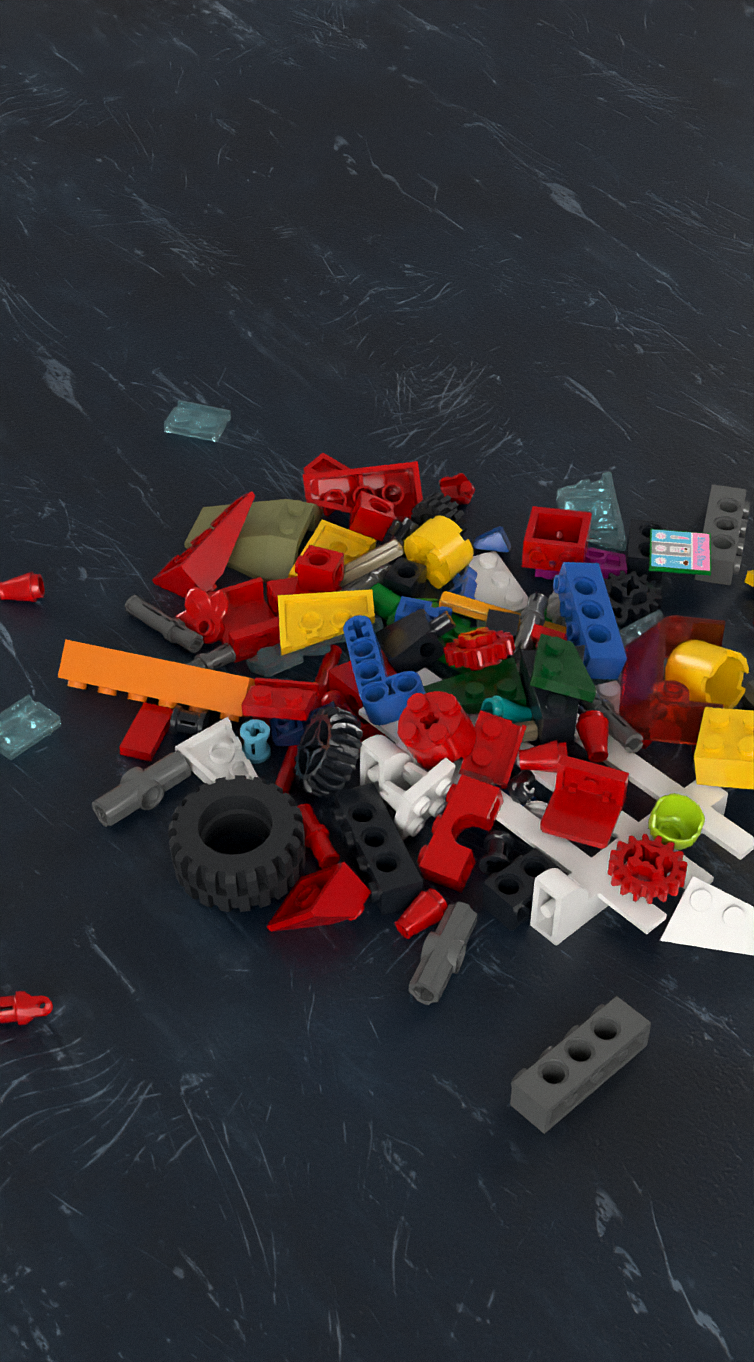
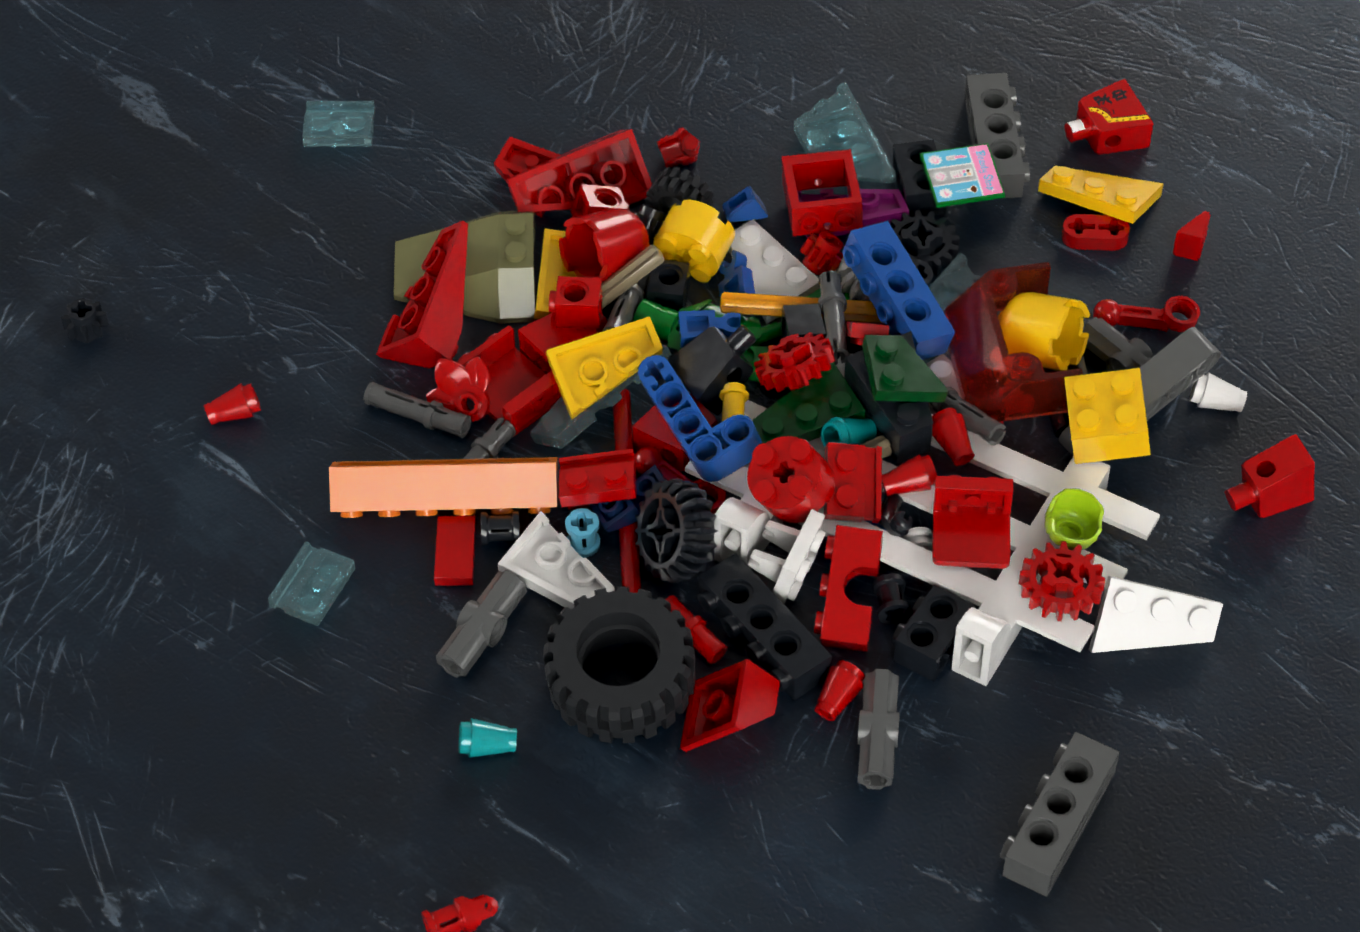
camera: 15 degrees left, 10 degrees up
(103, 875) = (485, 738): none -> teal cone
(359, 531) = (602, 242): none -> red cylinder
(420, 663) = (734, 398): none -> yellow pin
(539, 581) = (822, 252): none -> red gear

